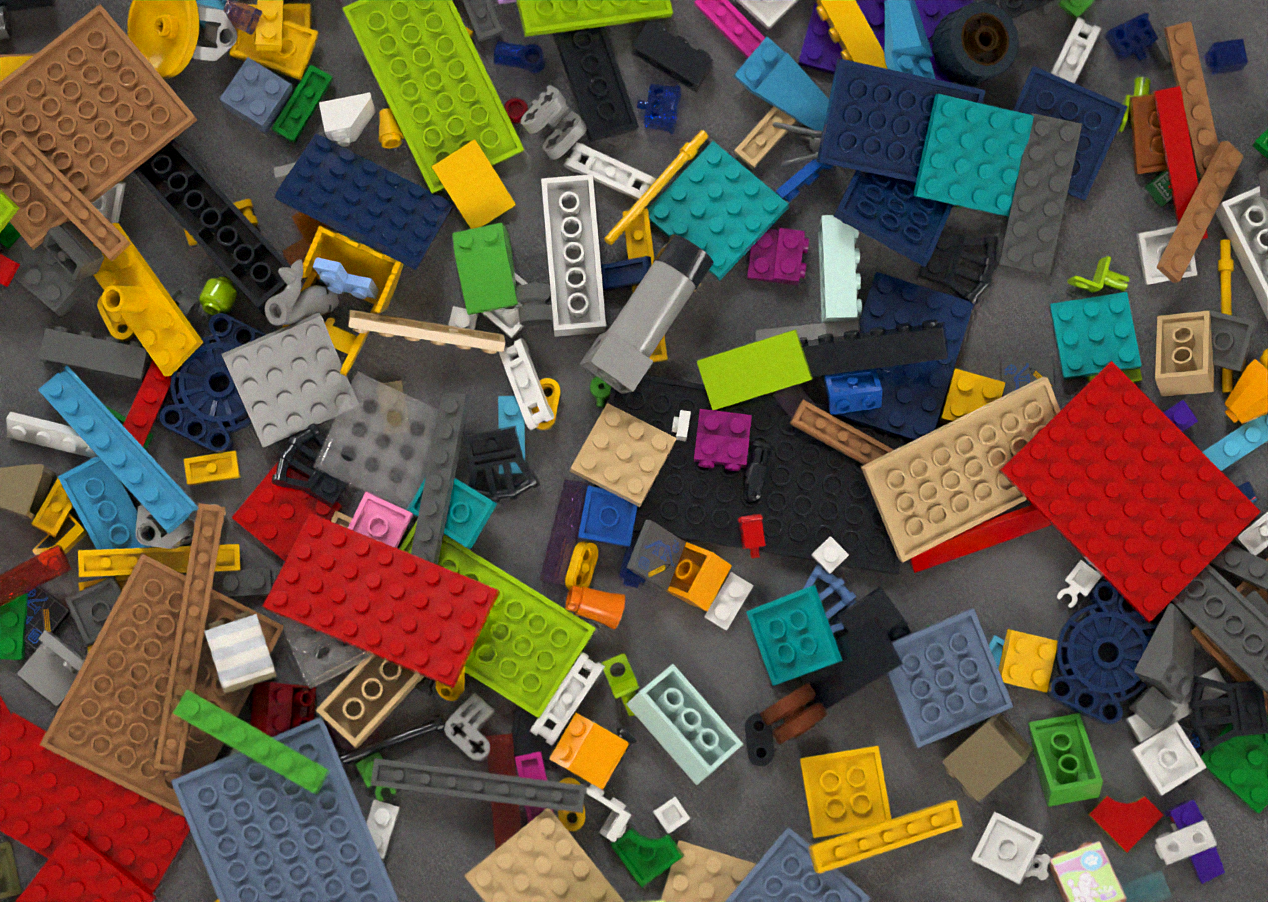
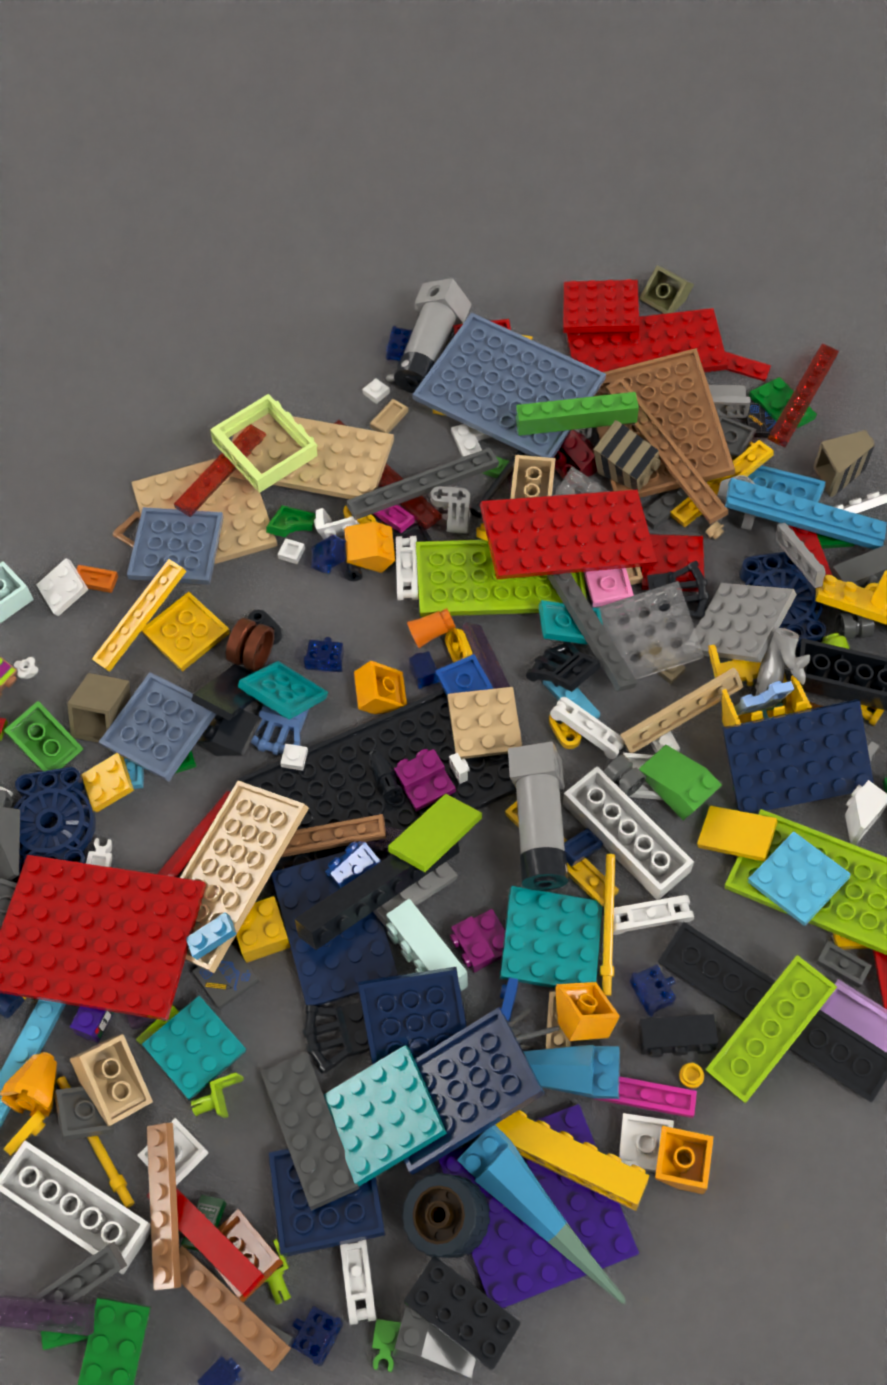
camera: 150 degrees right, 20 degrees down
(53, 510) = (808, 466): yellow plate -> none
(67, 537) = (790, 459): yellow slope -> none
(167, 412) = (800, 555): none -> light grey plate
(212, 468) = (739, 552): yellow plate -> none
(389, 131) = (828, 827): yellow cone -> none
(459, 102) = (799, 878): none -> medium azure plate
(515, 109) = (756, 912): dark red plate -> none
(516, 56) = (787, 950): clear blue piece -> none
(554, 112) = (727, 928): light grey piece -> none
(624, 685) = (377, 599): lime bracket -> none
(639, 773) = (328, 553): none -> clear blue piece
(656, 555) = (413, 677): dark grey tile -> none
(684, 724) = (318, 595): light aqua brick -> none
(686, 19) = (691, 1075): none -> yellow plate
(724, 648) = (324, 660): none -> clear blue piece
(728, 601) = (345, 692): white plate -> none
(739, 124) = (584, 1011): none -> light orange slope
(752, 533) = (358, 728): red piece -> none
(1007, 848) = (52, 662): white plate -> none
(1027, 407) = (211, 936): none -> plate

